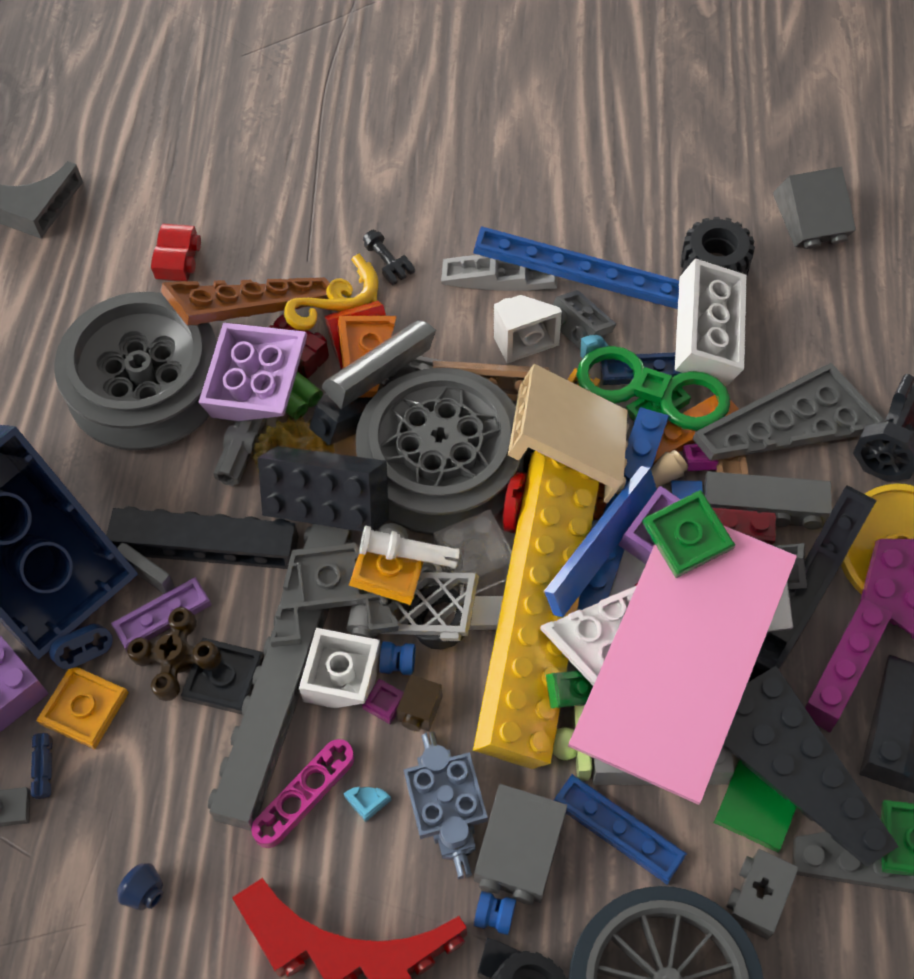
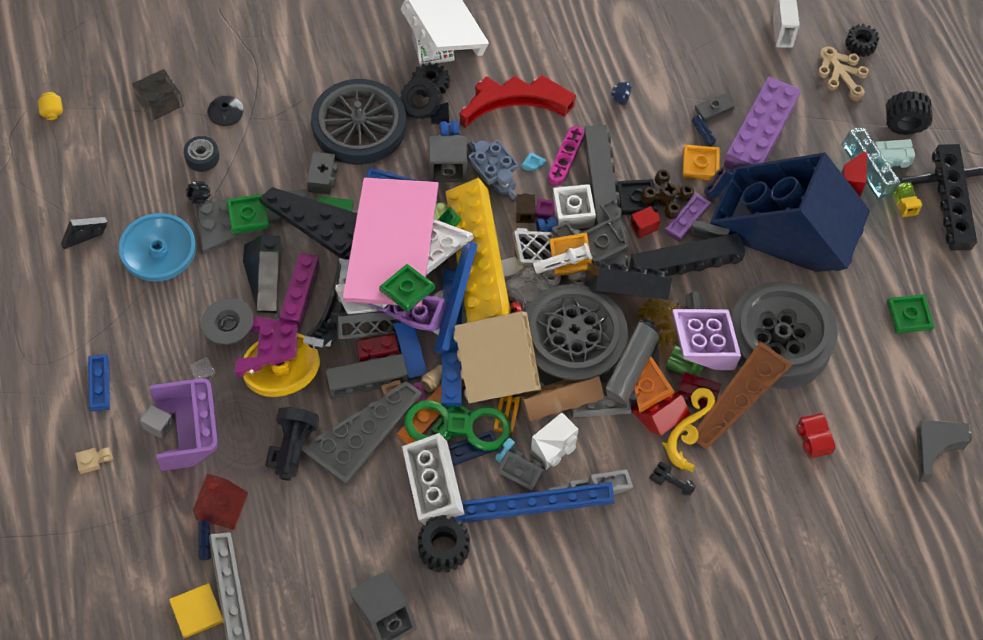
camera: 155 degrees right, 0 degrees up
(235, 617) = (645, 222): none -> red brick

